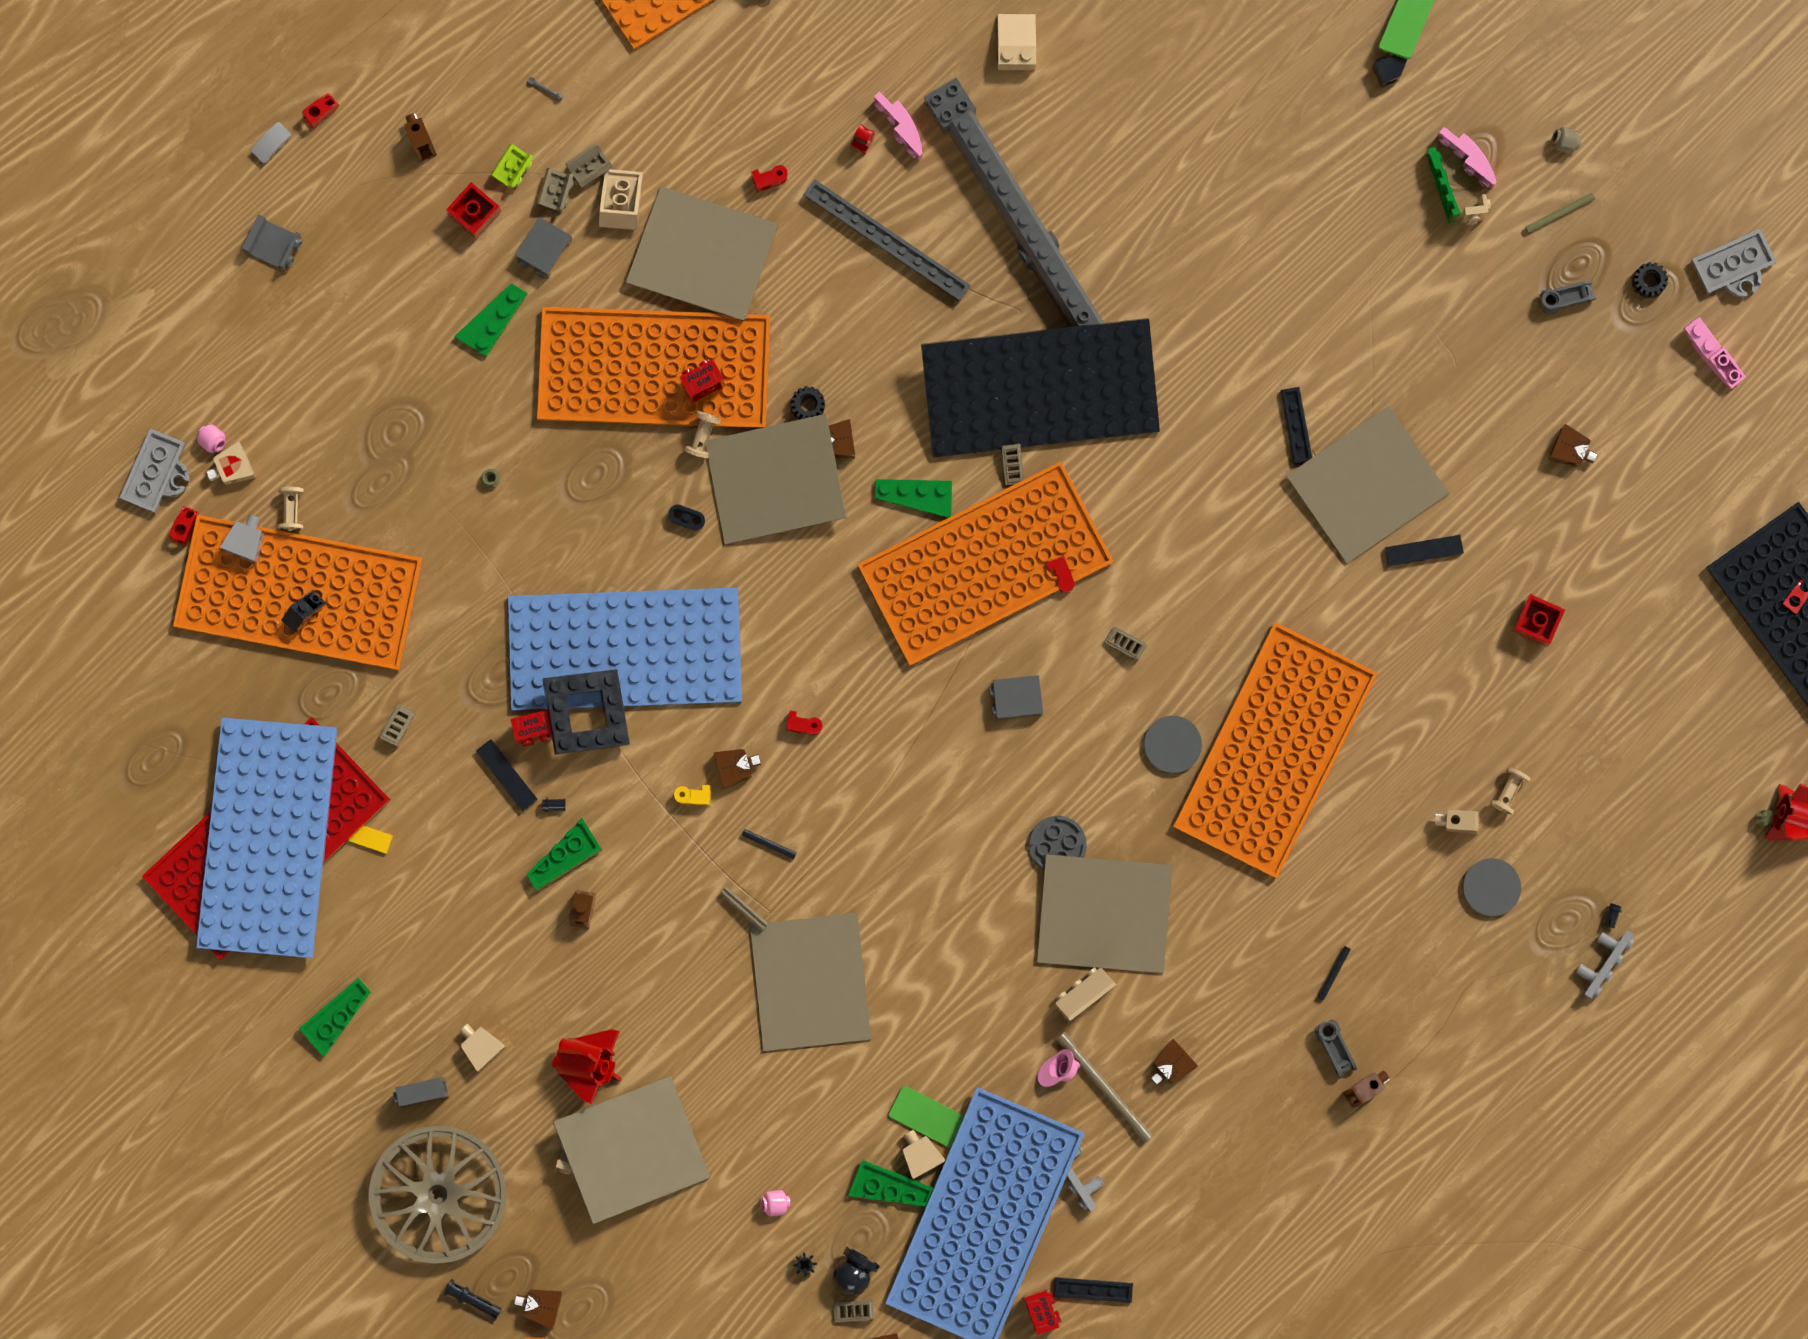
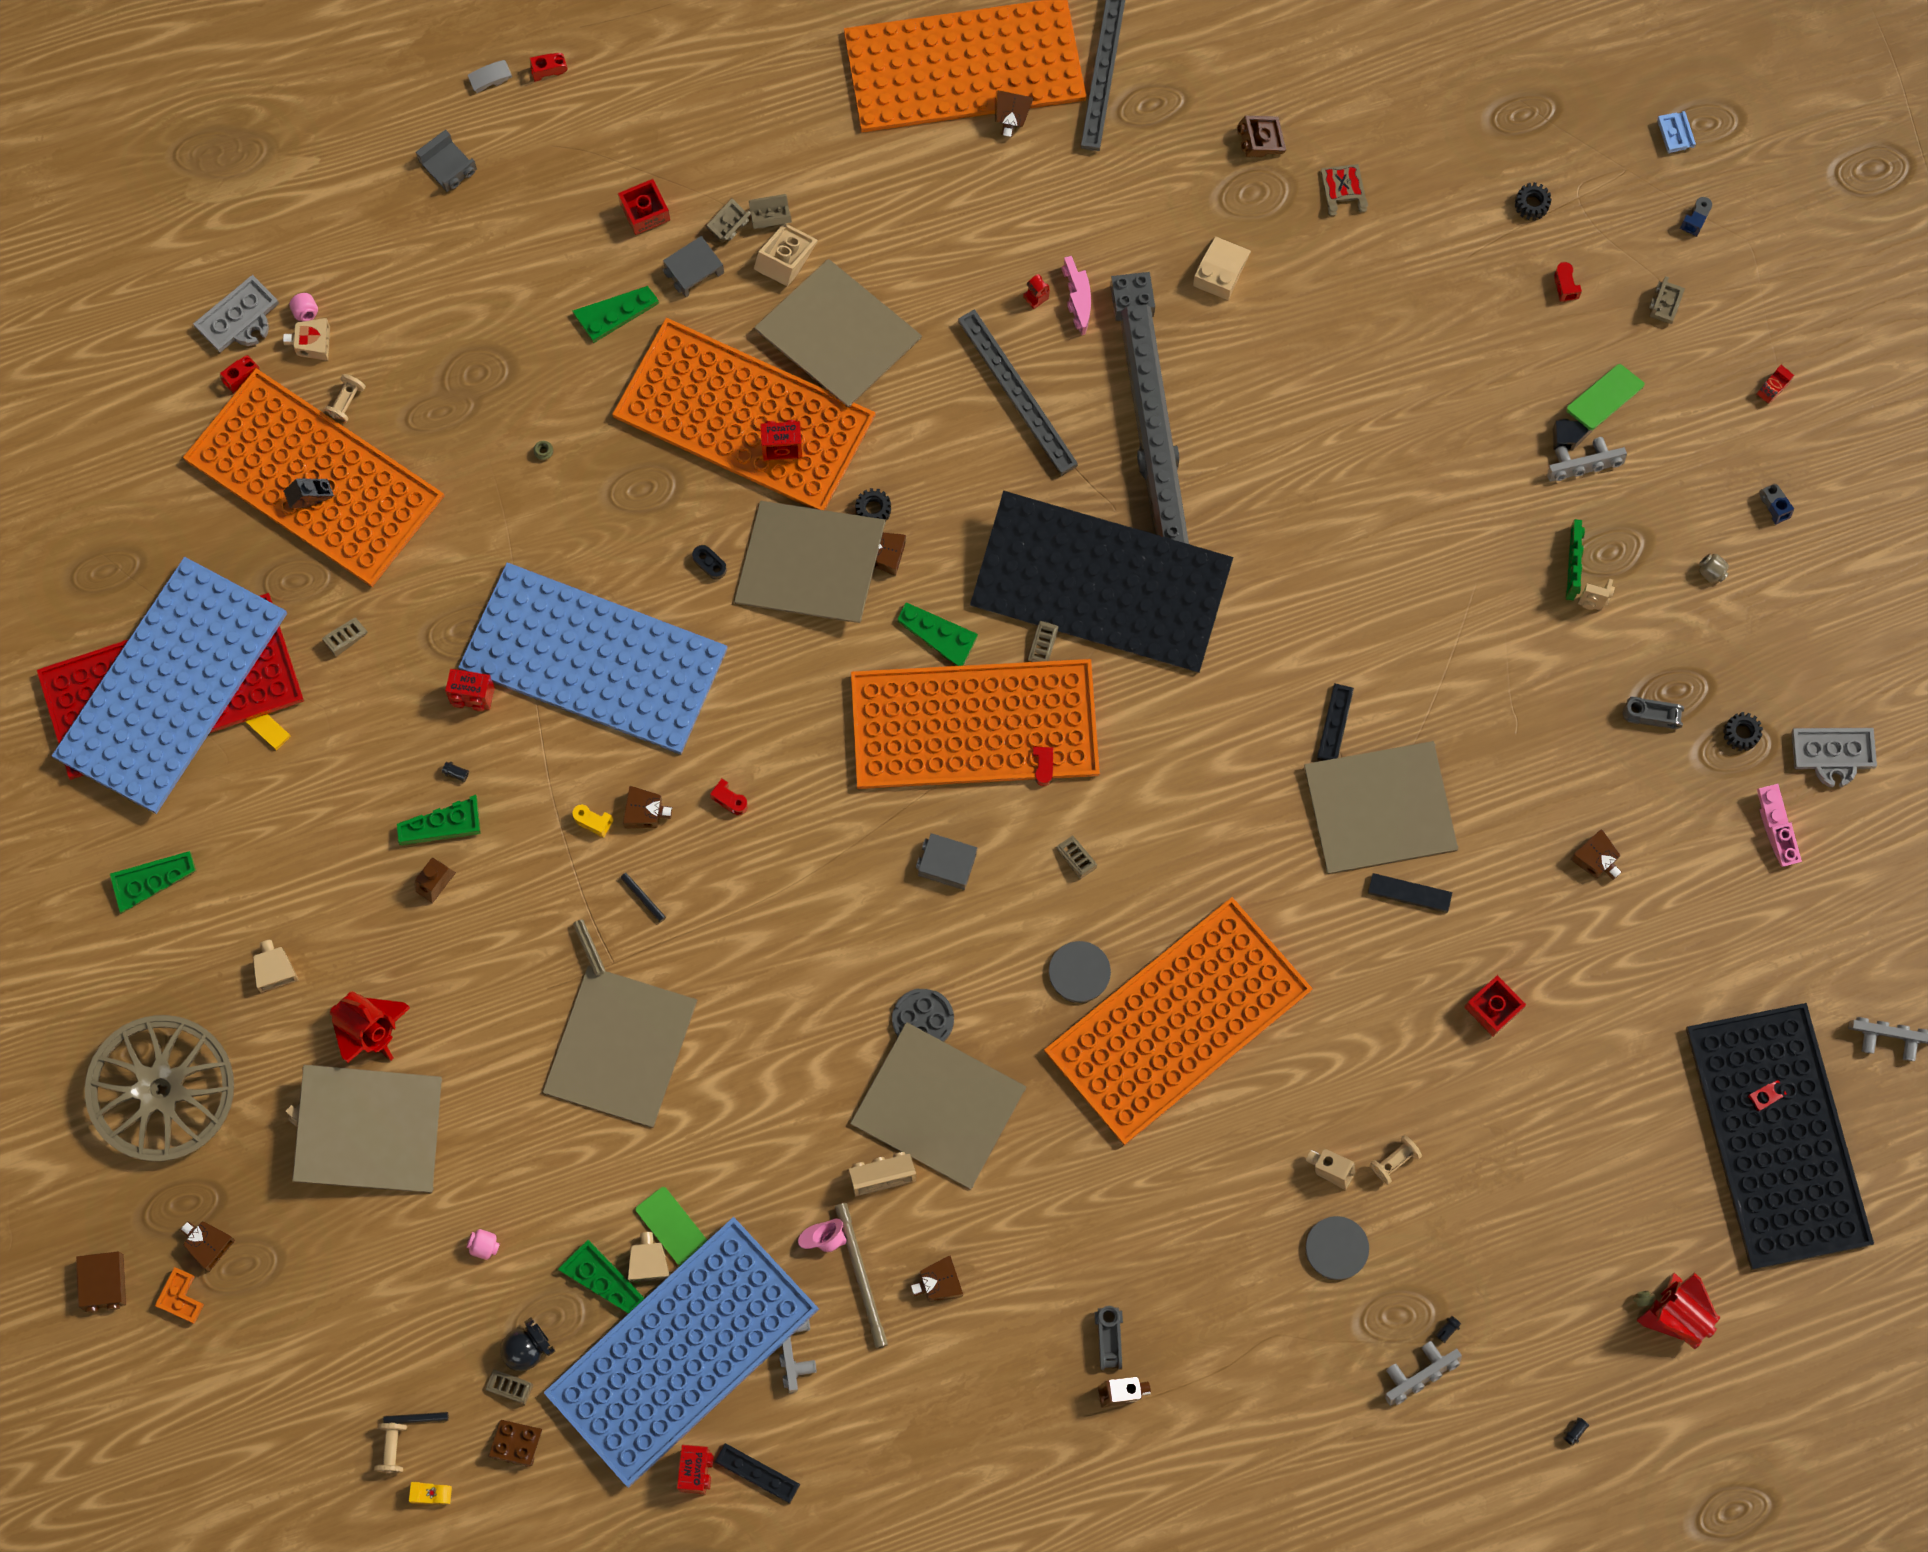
camera: 25 degrees right, 10 degrees down
(244, 539) = (286, 406): light grey torso -> none
(419, 137) = (625, 118): reddish brown torso -> none
(421, 1092) = (193, 984): dark grey brick -> none
(464, 1295) = (138, 1200): black pin -> none
(506, 775) = (424, 725): black tile -> none
(511, 166) = (698, 183): lime bracket -> none
(532, 81) = (754, 121): dark grey hinge -> none
(562, 737) = (559, 678): black plate -> none
(702, 434) = (759, 491): tan hose -> none
(769, 179) = (933, 292): red leg -> none
(805, 1270) = (477, 1317): black gear -> none
(1334, 972) = (1141, 1263): black bar -> none
(1411, 96) = (1580, 466): none -> light grey plate
(1475, 160) = (1616, 550): bright pink slope -> none
(1559, 213) = (1679, 633): olive bar -> none
(1596, 55) = (1776, 503): none -> leg
(1752, 954) = (1575, 1431): none -> black pin

